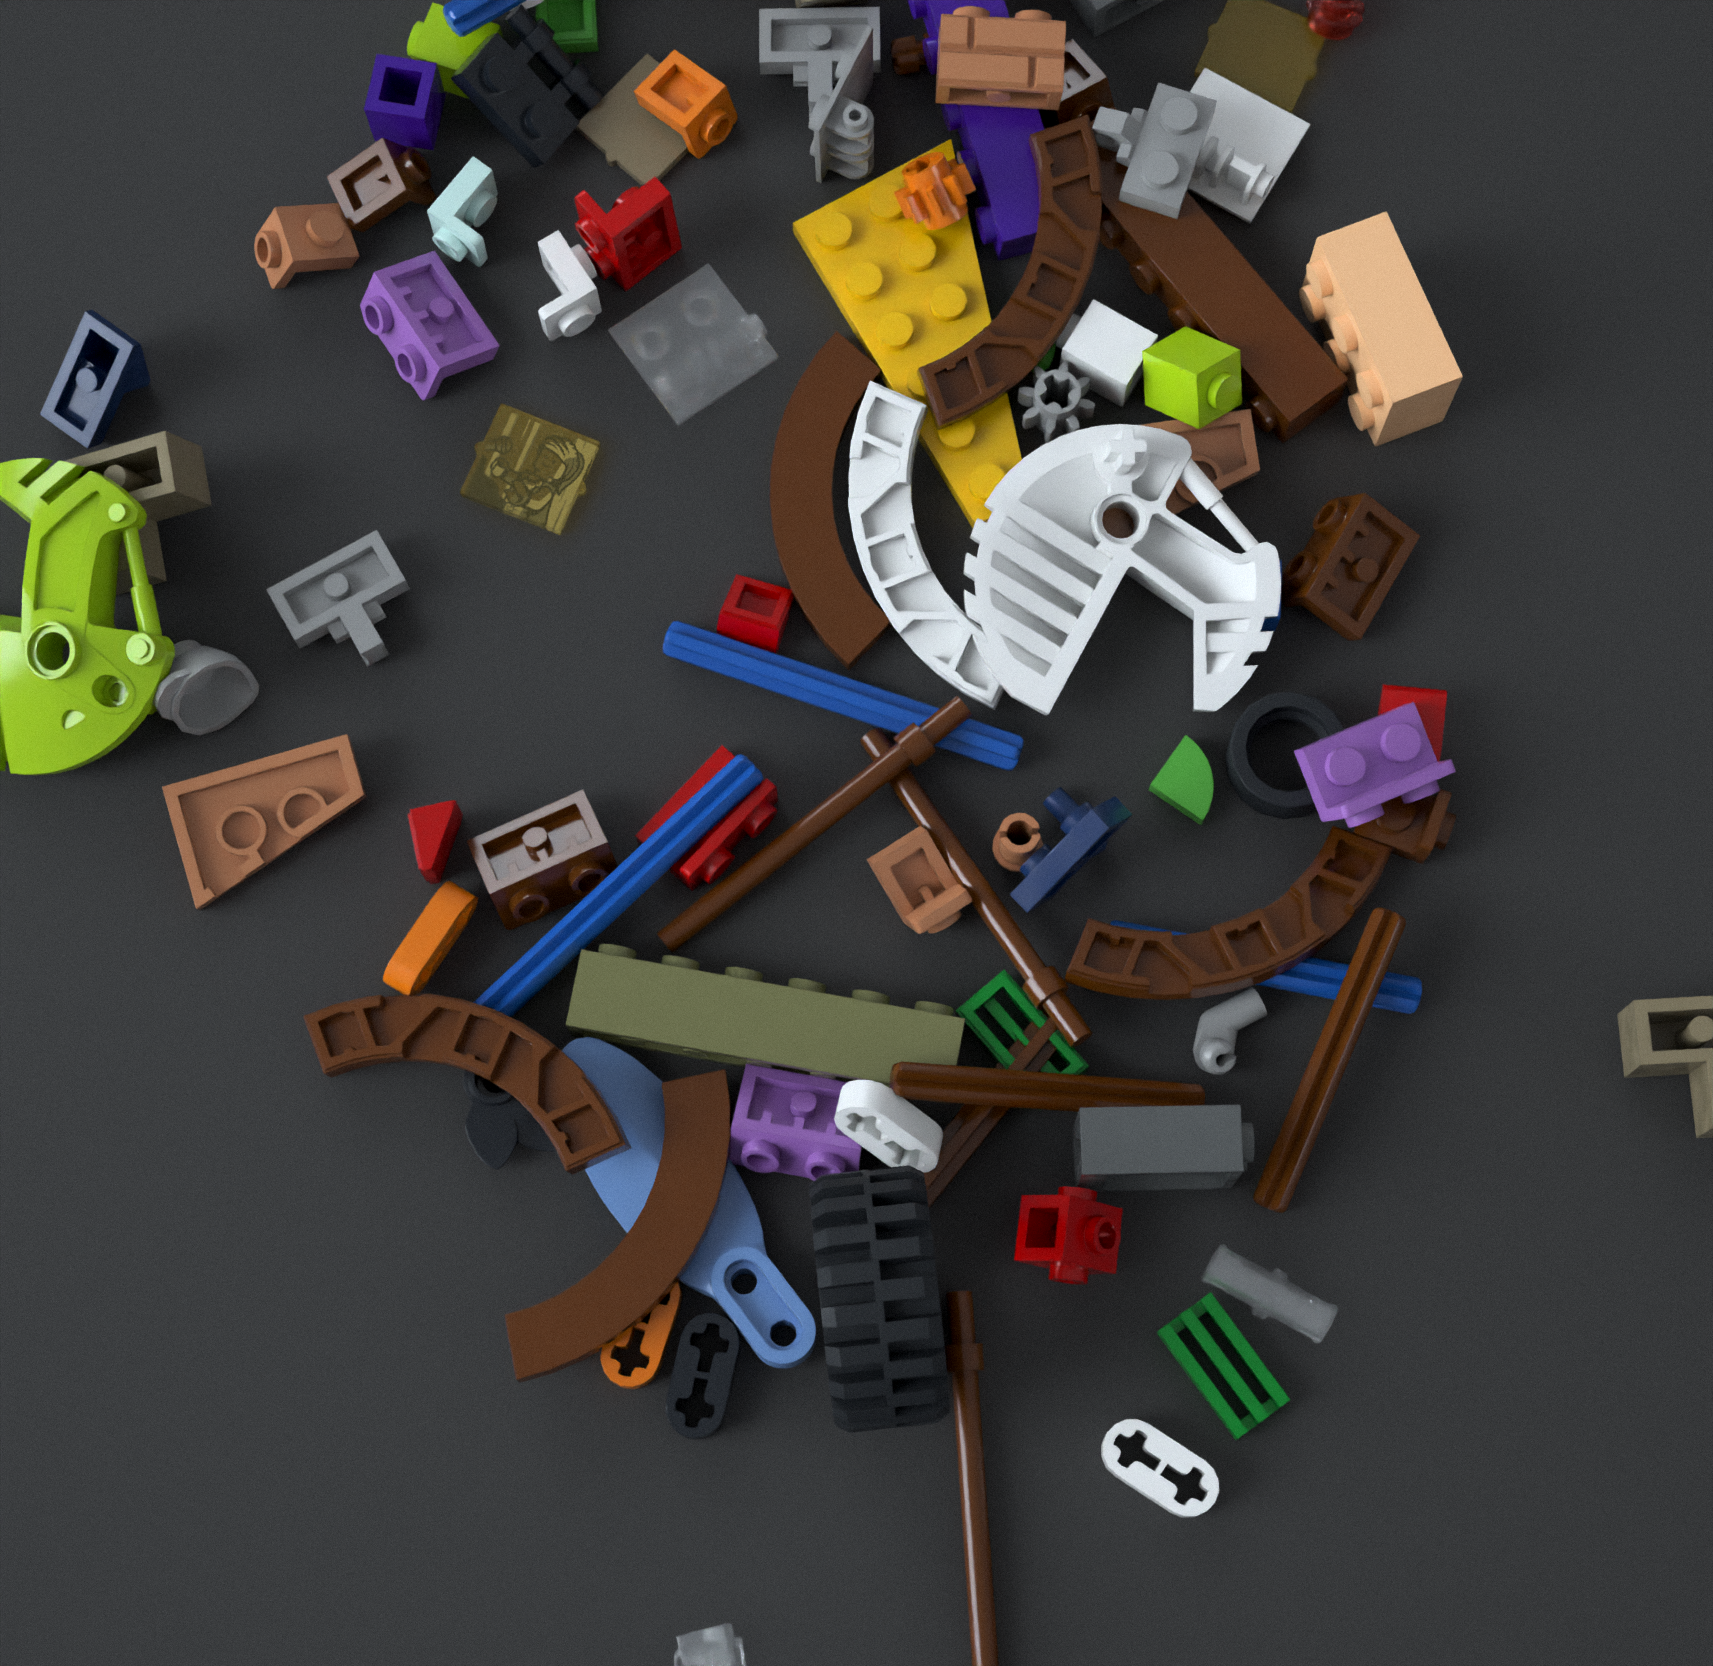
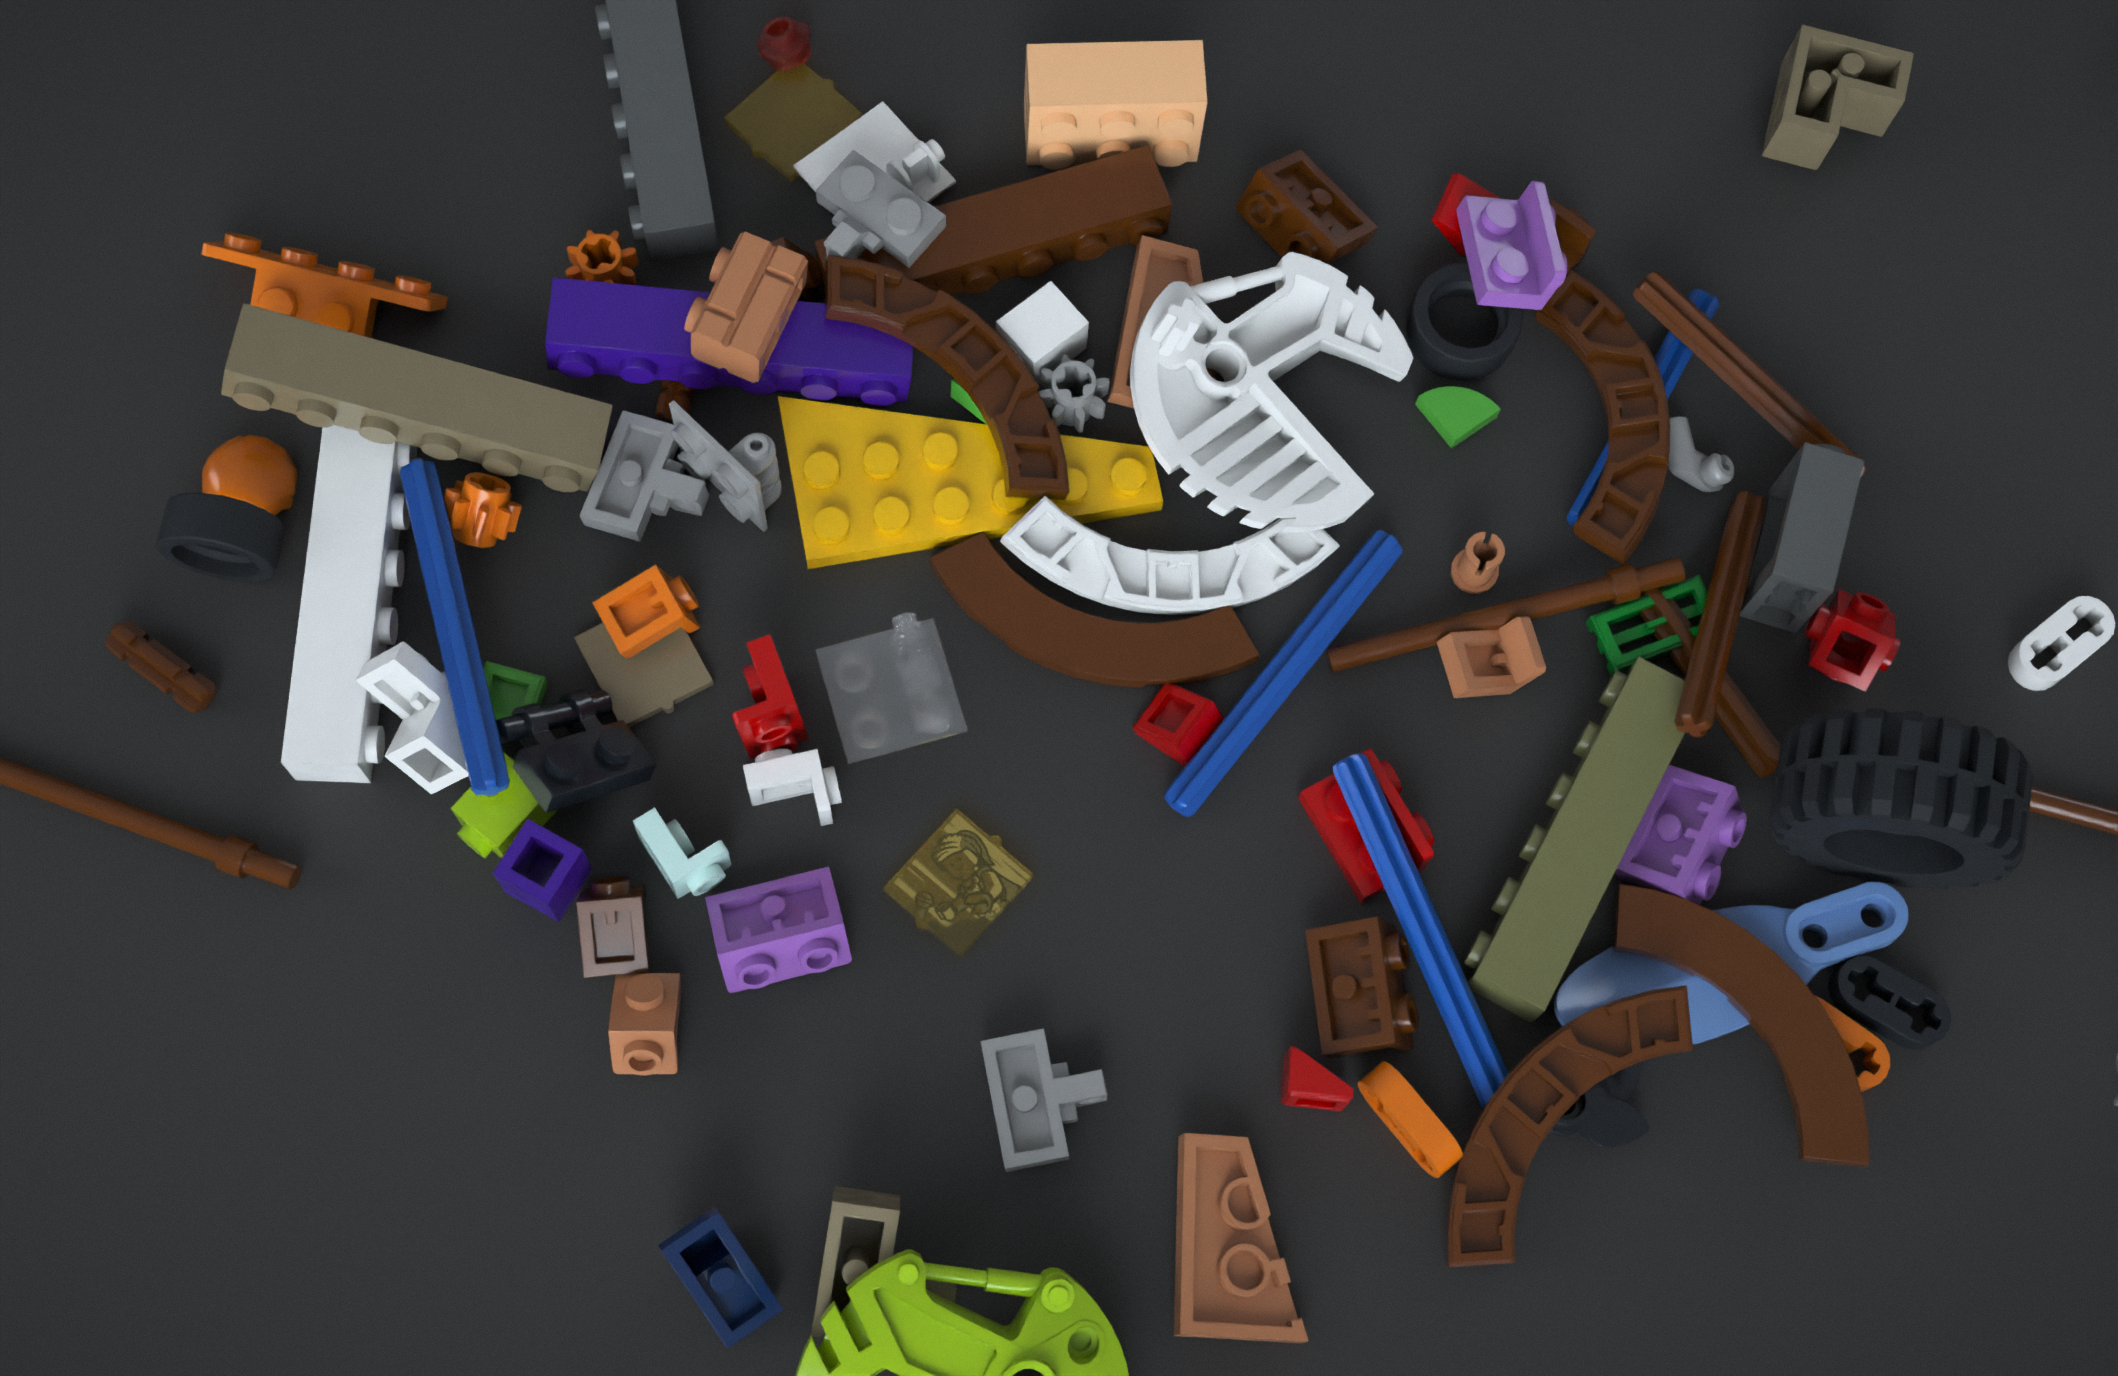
camera: 80 degrees left, 5 degrees down
(204, 688) = (1089, 1256): light grey piece -> none
(888, 1125) = (1723, 753): white beam -> none
(912, 746) = (1364, 621): reddish brown bar -> none
(935, 190) = (837, 417): orange gear -> none
(1086, 836) = (1508, 503): dark blue plate -> none
(1192, 377) = (1100, 267): lime brick -> none
(1244, 1351) = (2025, 548): green tile -> none
(1269, 1293) = (1934, 501): clear pin -> none

